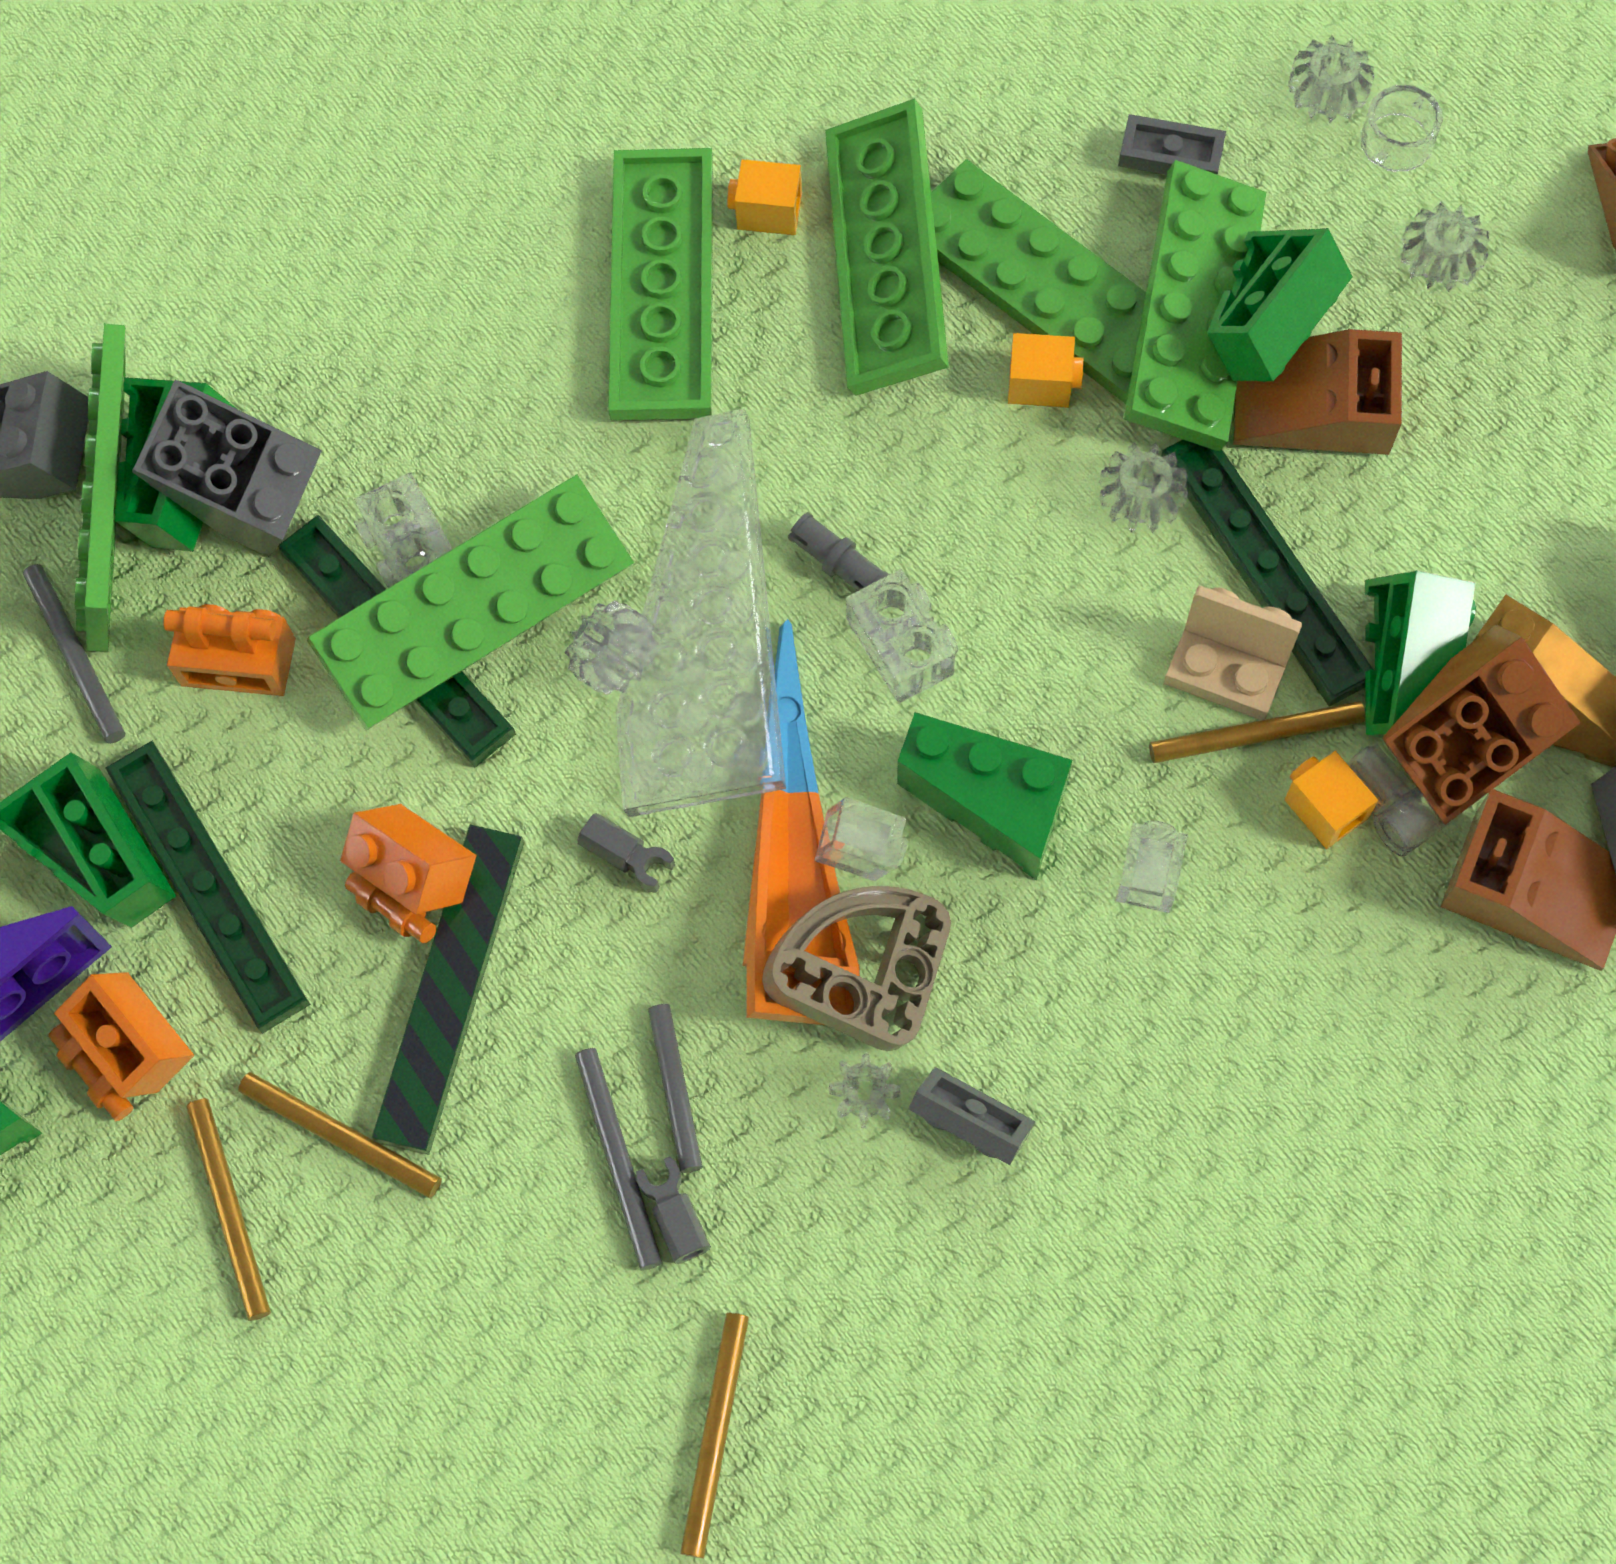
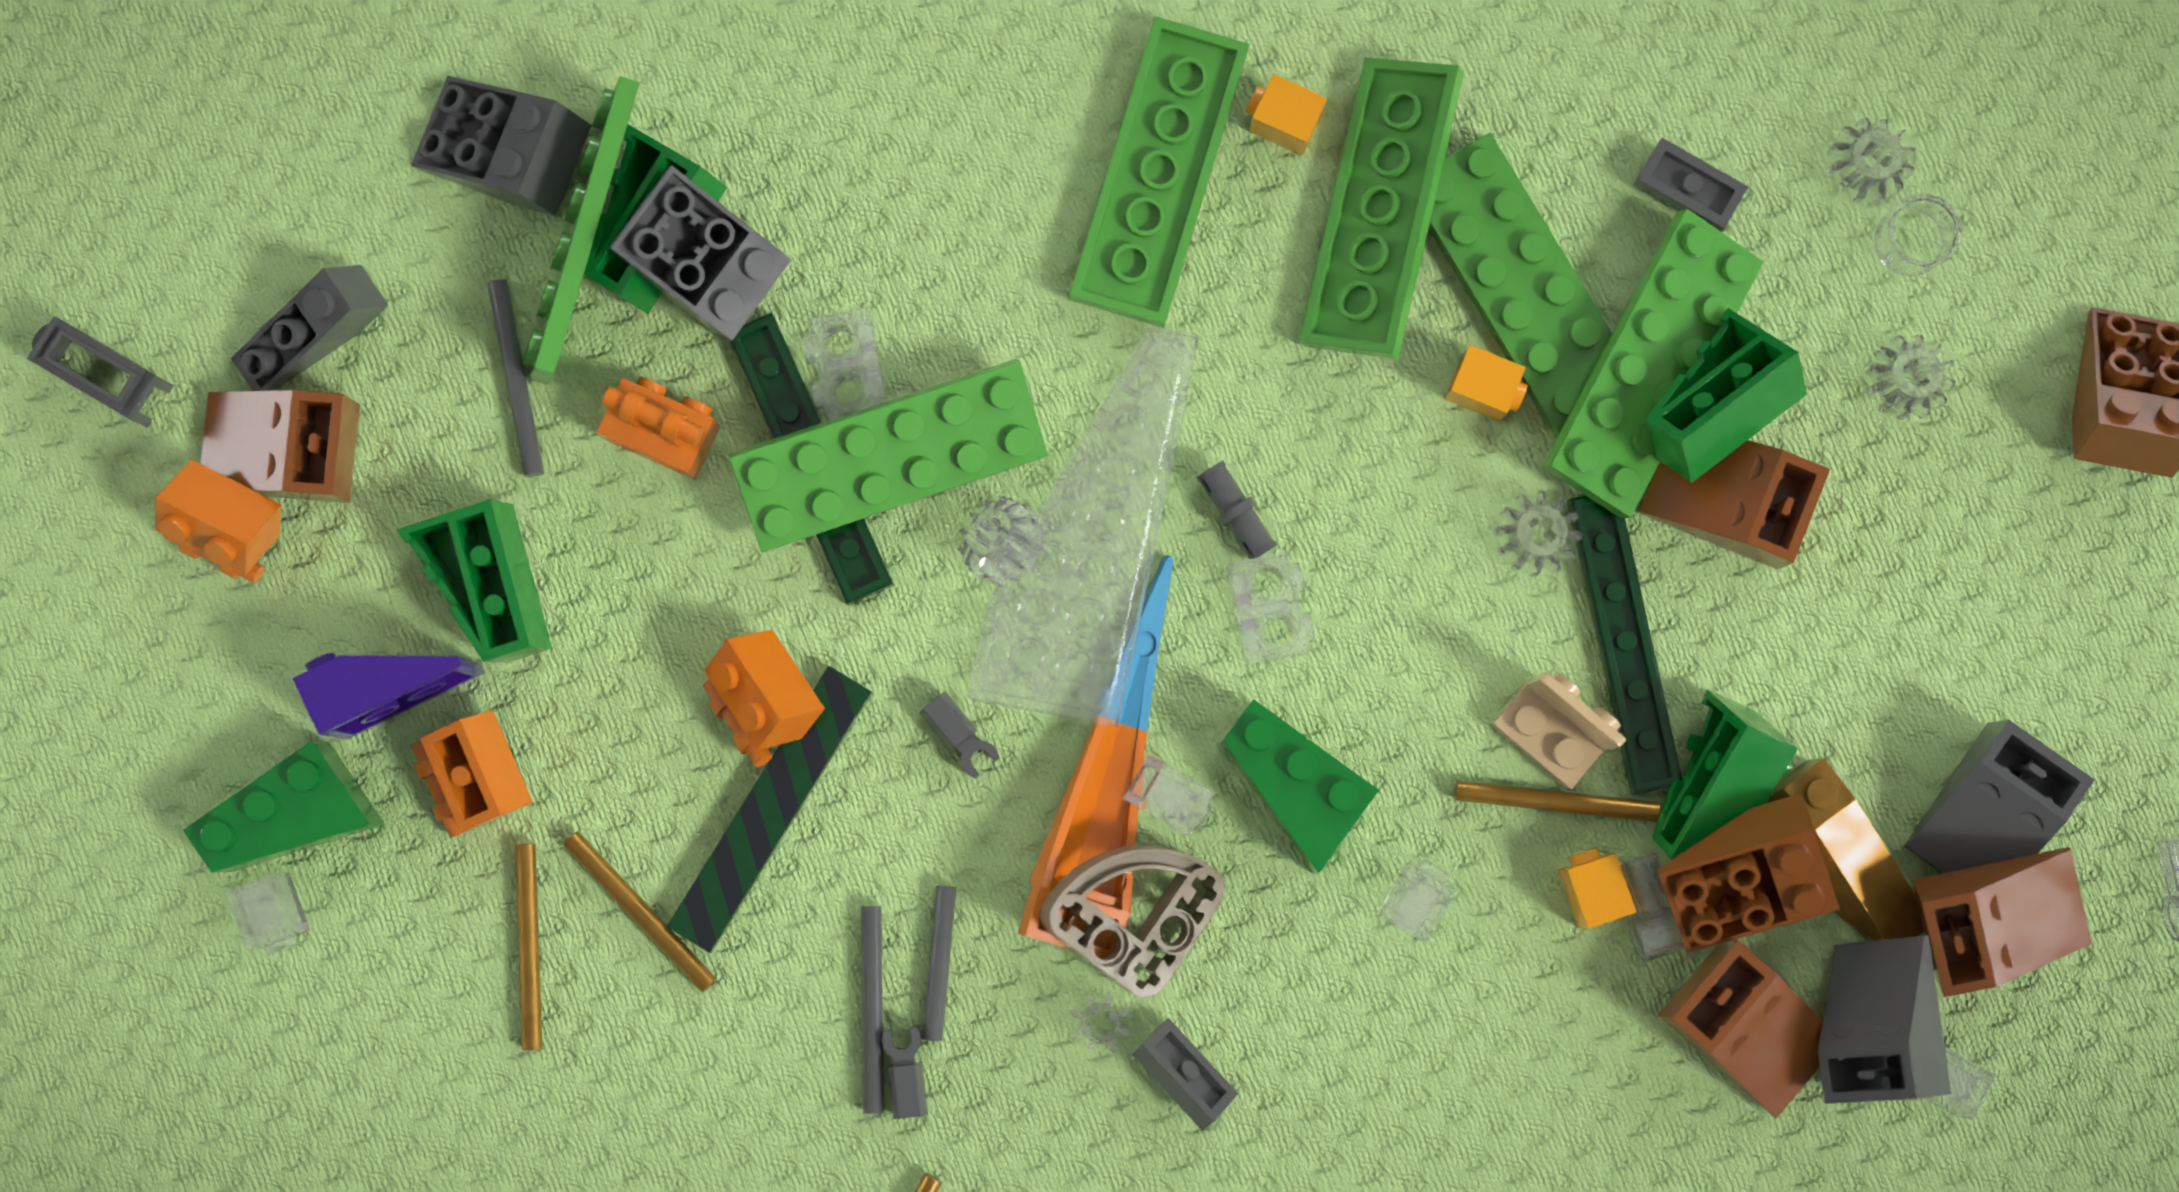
camera: 10 degrees right, 15 degrees up
(208, 887) = (581, 643): dark green tile -> none

